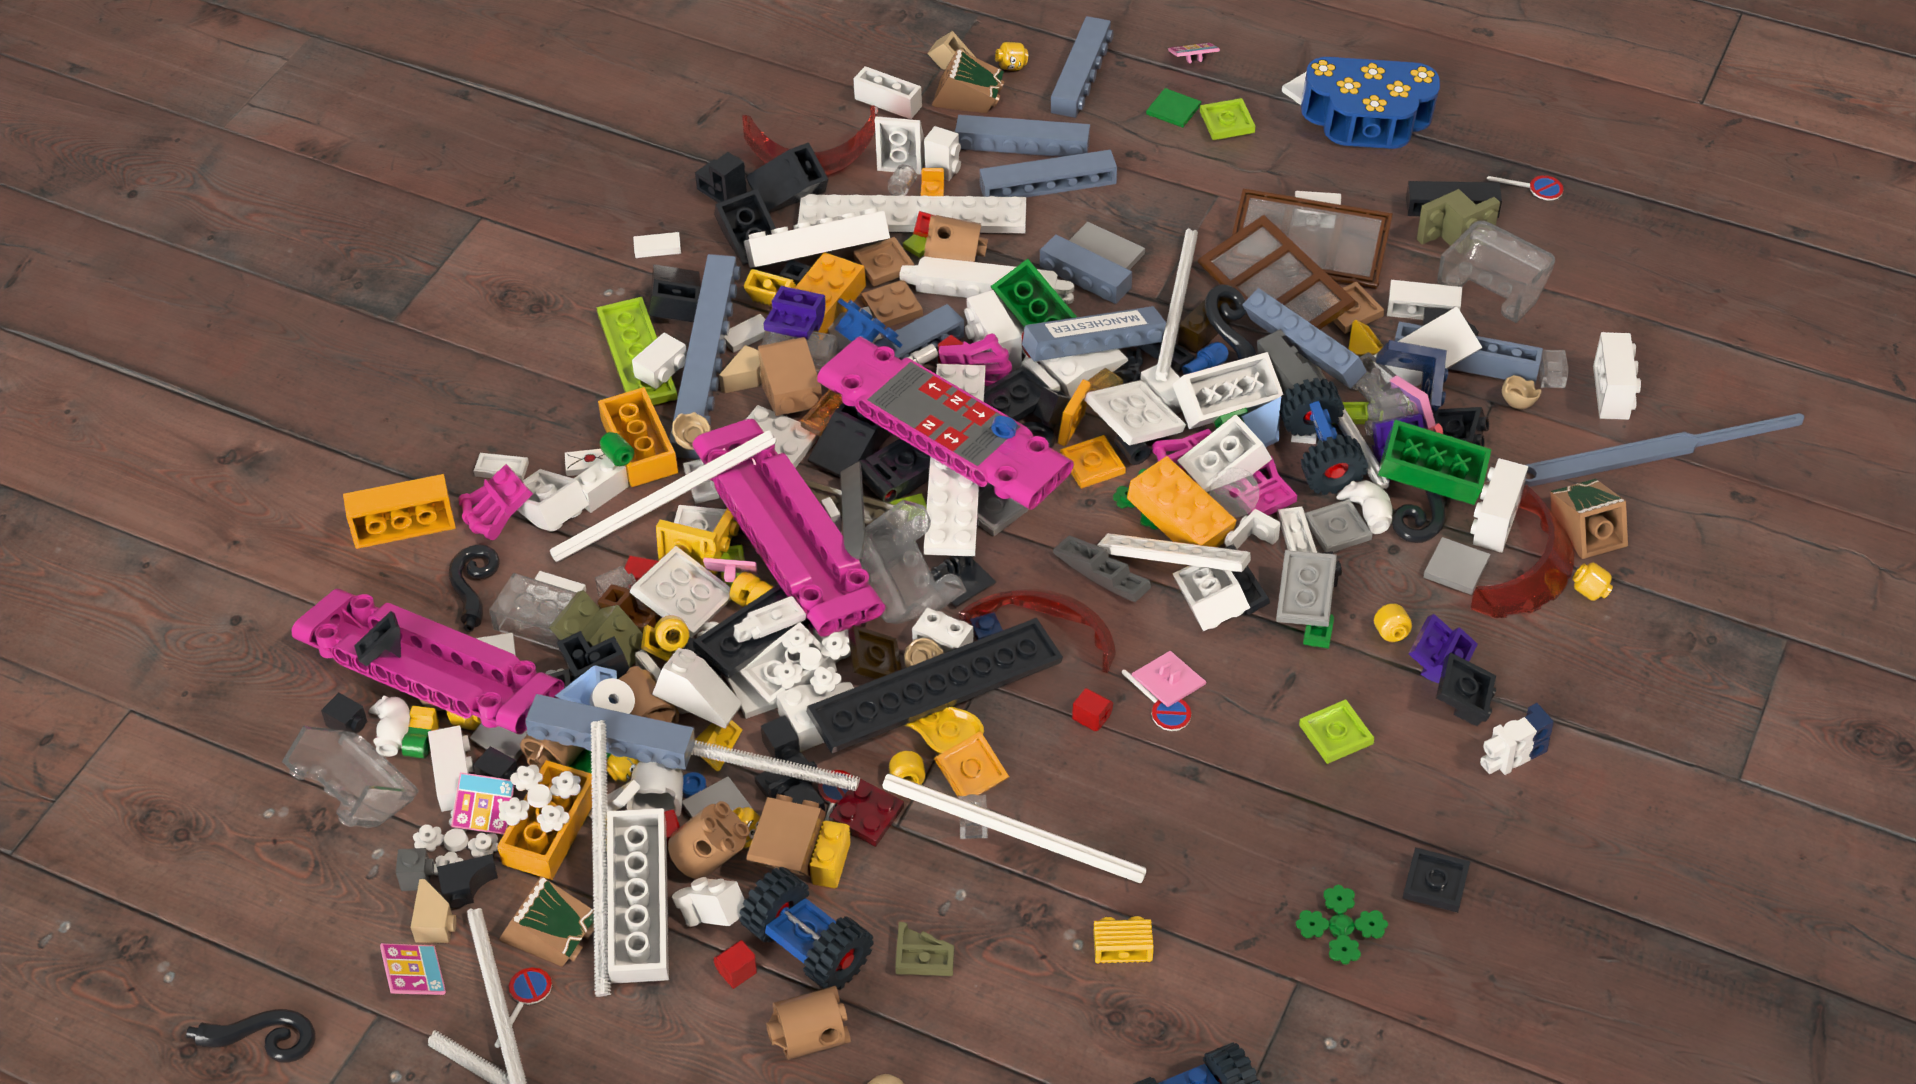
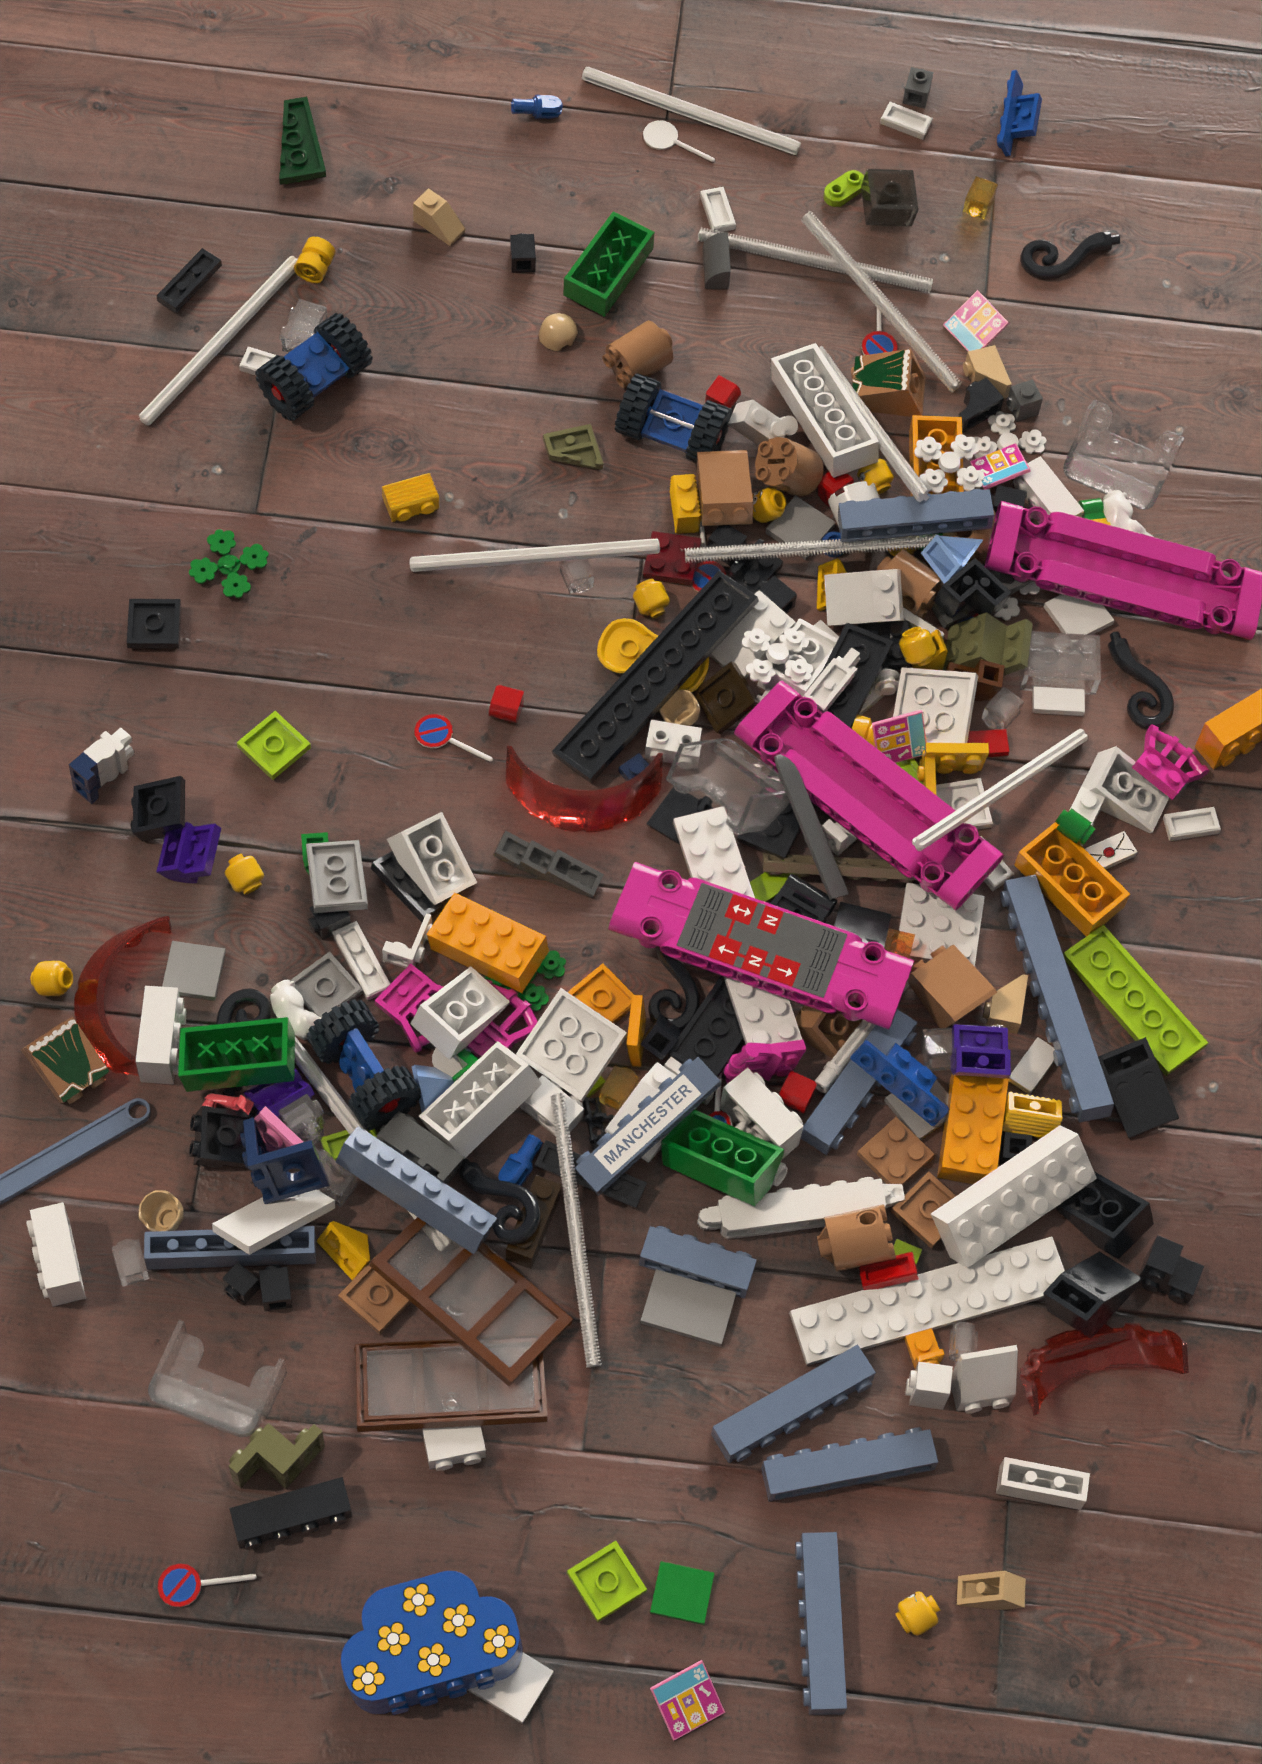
camera: 155 degrees right, 15 degrees up
(344, 714) = (1168, 518): black brick -> none
(381, 637) = (1166, 546): black slope -> none
(613, 689) = (936, 554): white piece -> none
(620, 796) = (882, 476): white tile -> none
(657, 245) = (1195, 1165): white tile -> none
(659, 360) = (1097, 972): white brick -> none
(688, 427) = (1014, 874): tan hair -> none
(968, 85) = (949, 1533): medium nougat slope -> none
(971, 766) = (594, 615): light orange tile -> none
(1004, 427) = (689, 924): blue tile -> none
(1169, 678) = (446, 763): bright pink piece -> none
(1175, 552) = (479, 883): white tile -> none
(1244, 482) = (438, 967): clear plate -> none
(1411, 298) = (294, 1326): white brick -> none

